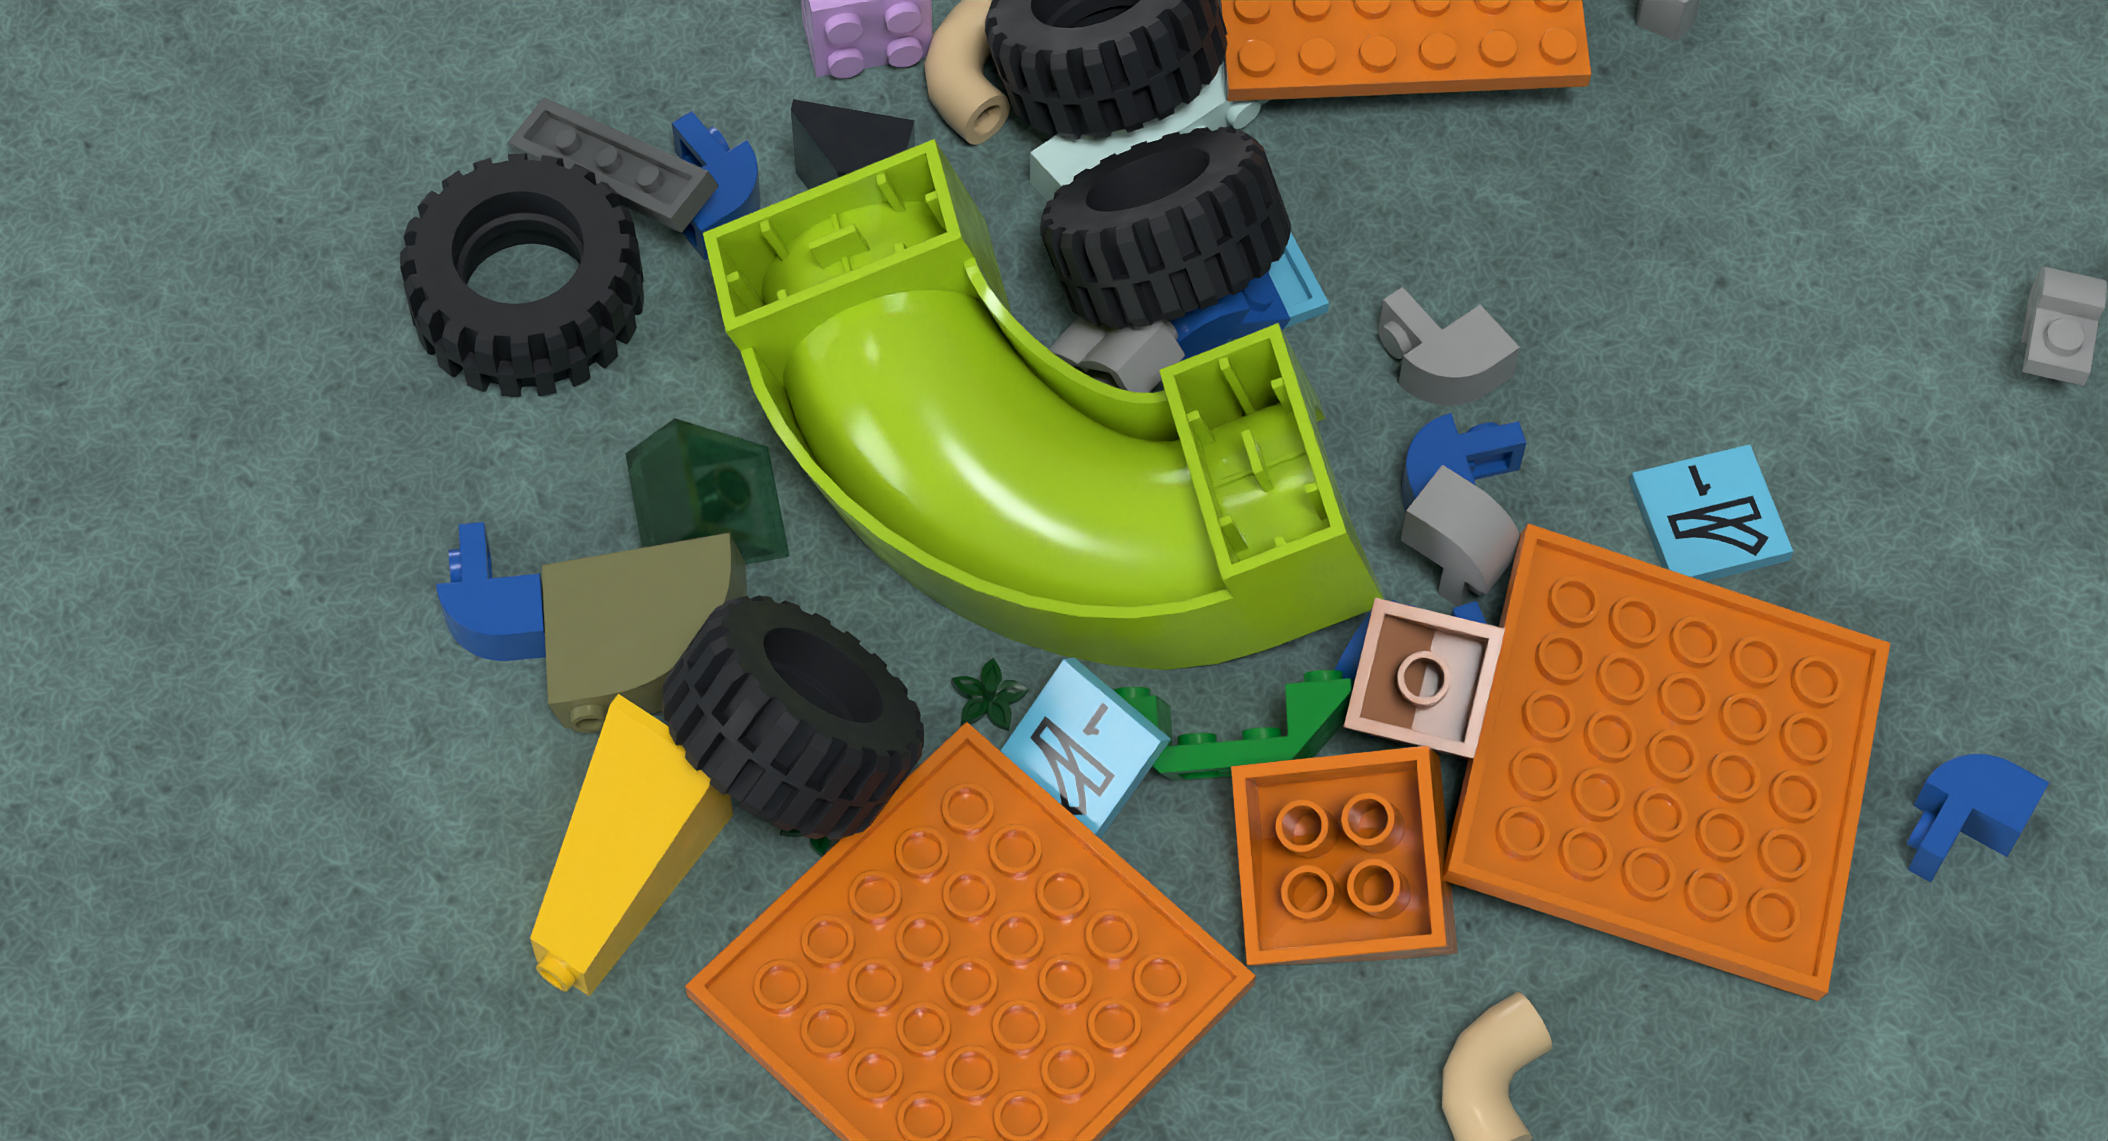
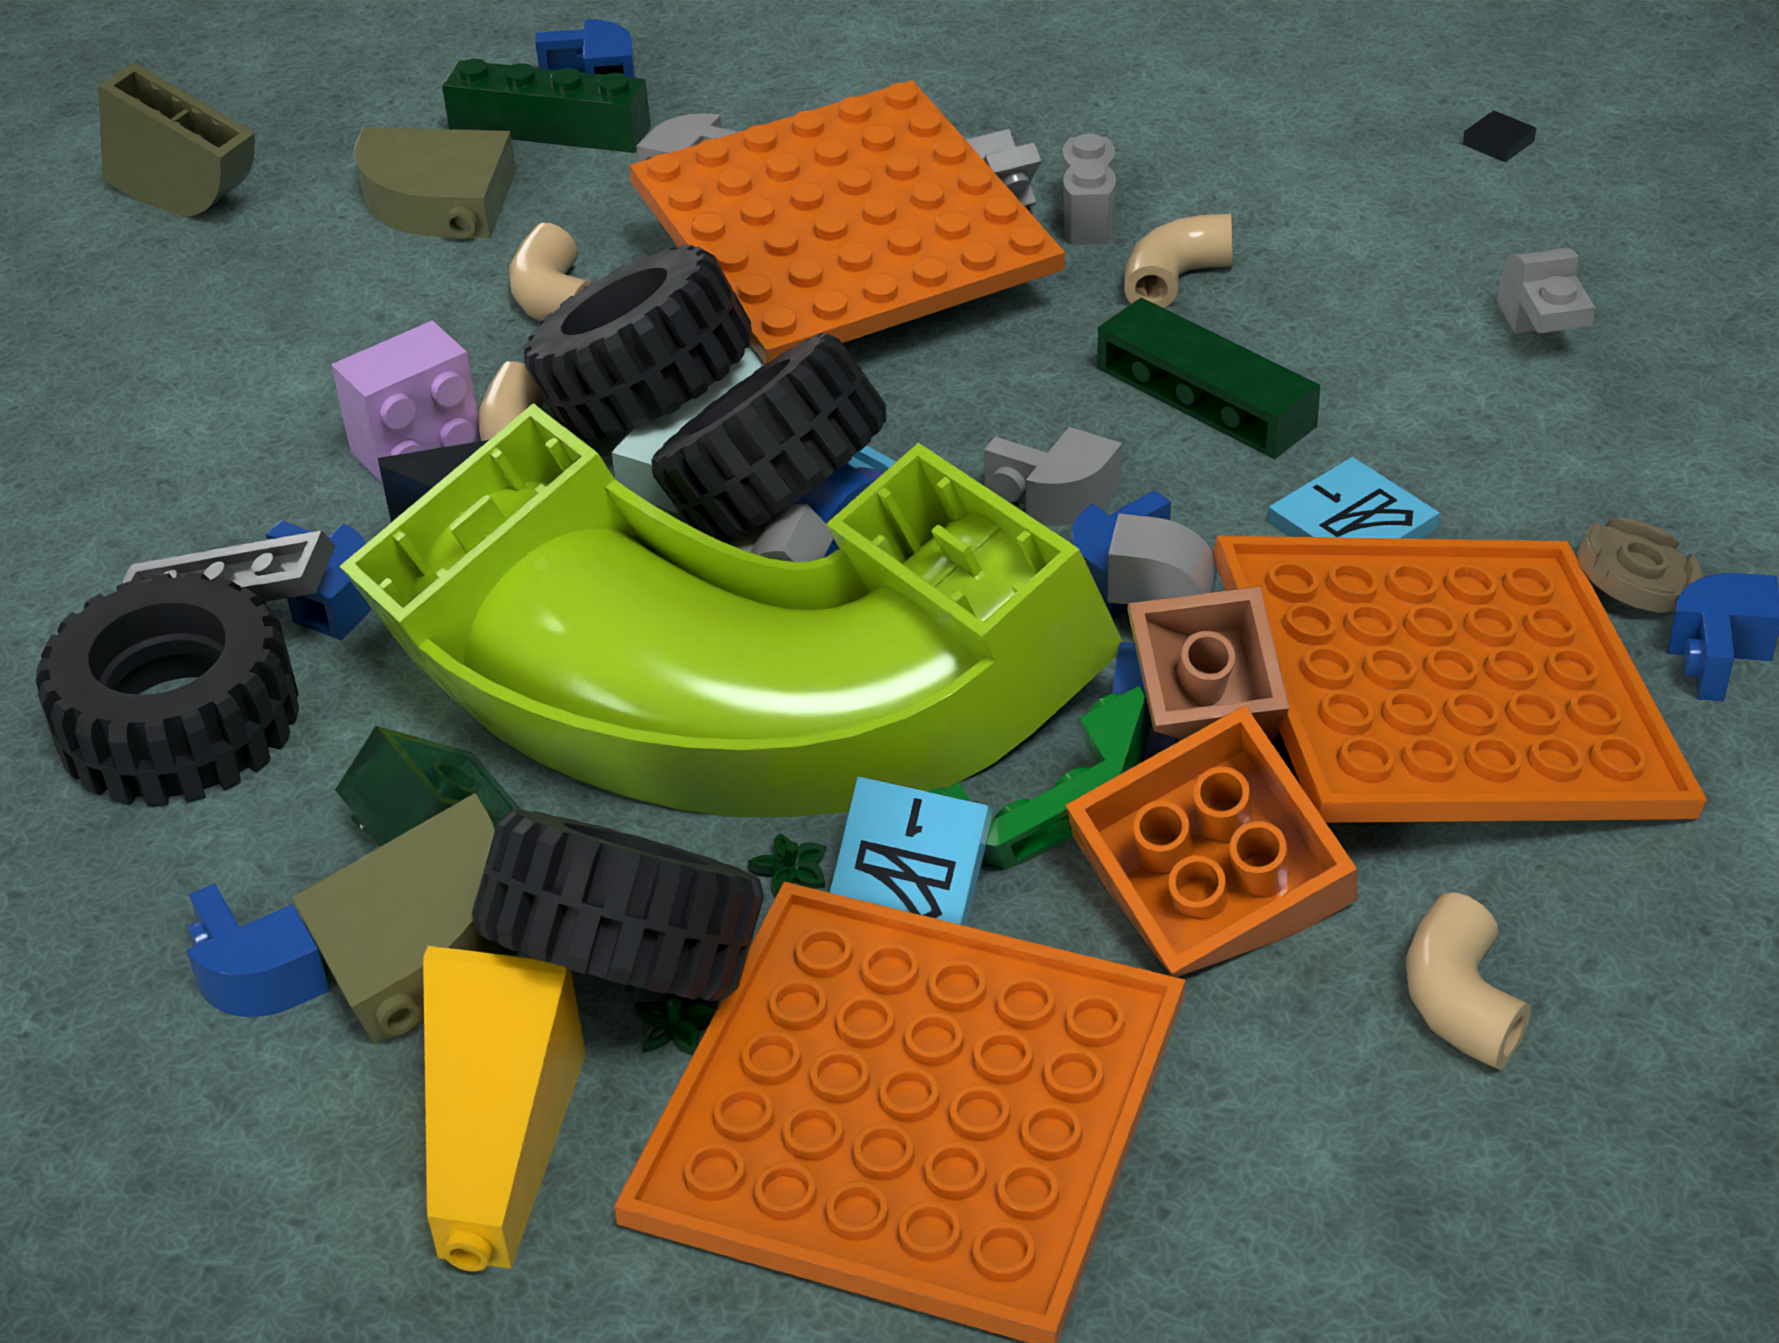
camera: 20 degrees left, 20 degrees down
(1664, 282) = (1208, 377): none -> dark green brick
(1720, 92) = (1174, 250): none -> tan cylinder
(1943, 699) = (1637, 564): none -> dark tan tile

